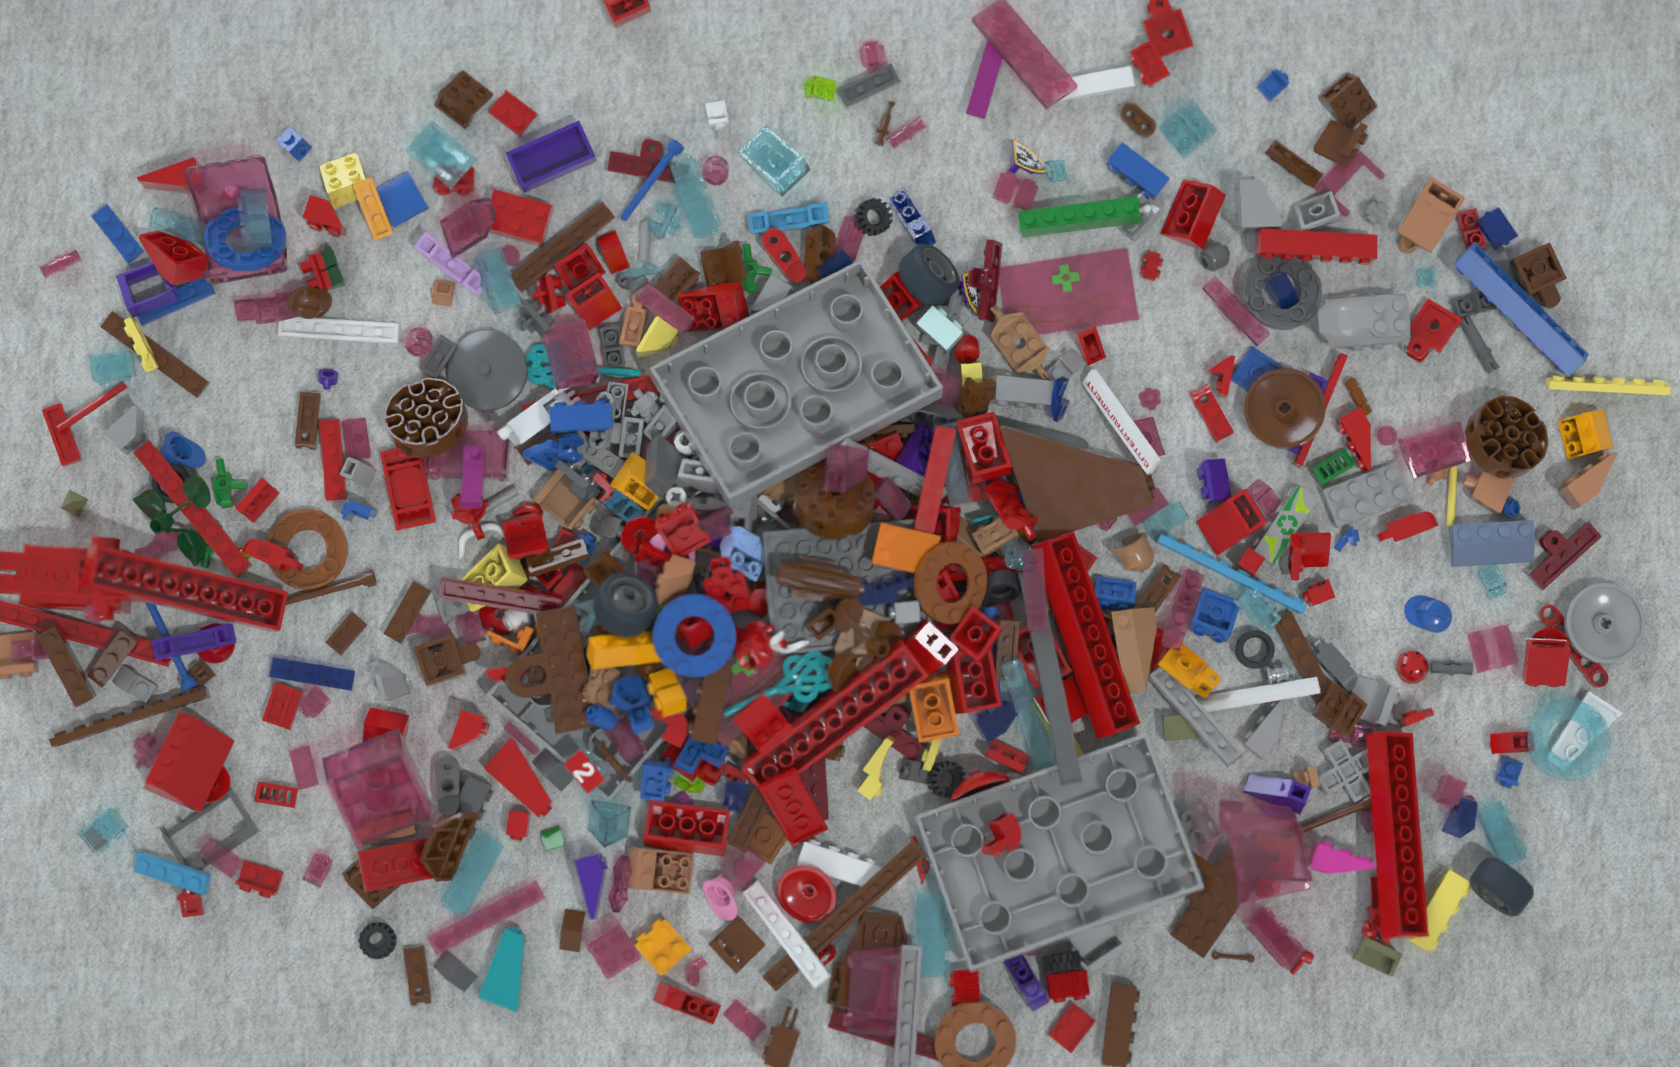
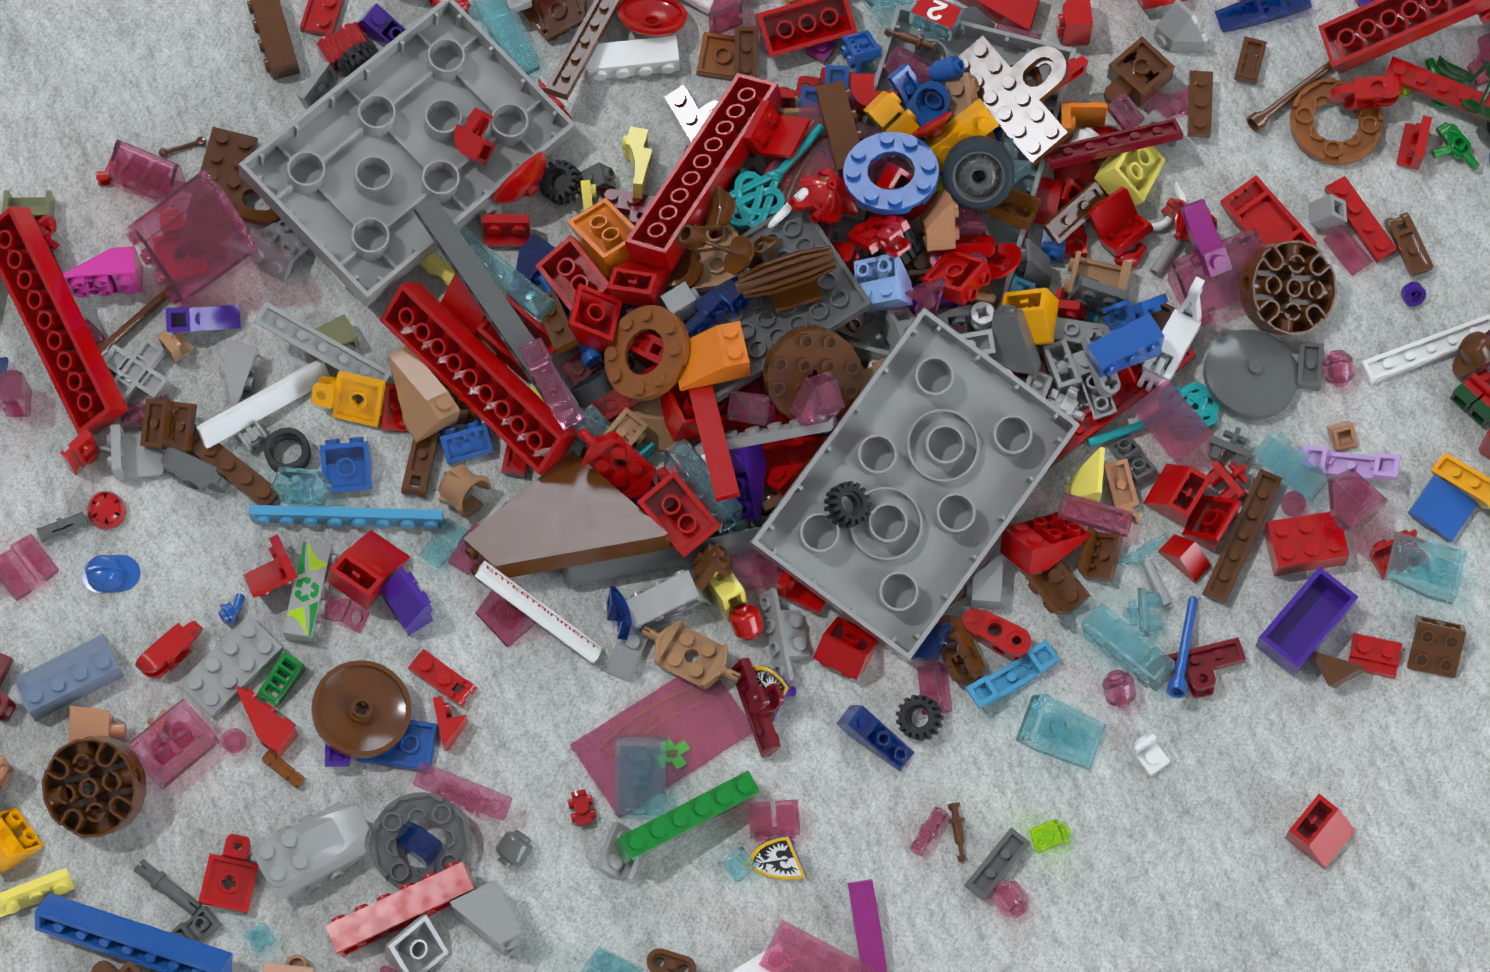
camera: 160 degrees right, 15 degrees down
(353, 508) = (1305, 174): blue bracket -> none
(547, 112) = (1337, 670): none -> reddish brown slope
(631, 284) = (1145, 532): dark grey arm -> none
(642, 664) = (932, 128): none -> red dish
(689, 787) = (815, 69): clear neon green arm -> none
(735, 796) = (773, 71): clear blue slope -> none
(752, 270) = (1026, 603): green piece -> none
(793, 807) = (706, 80): red tile -> none
(850, 375) = (858, 500): none -> black tyre
(928, 274) = (826, 673): black wheel -> none
(940, 328) = (785, 622): light aqua brick -> none
(1090, 345) = (611, 689): red slope -> none
(1097, 268) = (641, 775): none -> clear light blue slope
(1137, 171) = (645, 904): blue brick -> none
(1144, 397) = (517, 672): clear pink plant -> none
(1182, 609) = (384, 454): clear pink slope -> none
(1193, 213) = (559, 886): red slope -> none
(1250, 561) = (332, 534): red brick -> none
(1318, 593) = (240, 537): red brick -> none
(1333, 379) = (320, 770): red tile -> none
(1451, 496) = (131, 703): light yellow bar -> none
(1493, 581) = (51, 635): clear light blue bracket -> none
(1511, 508) = (59, 723): blue plate -> none

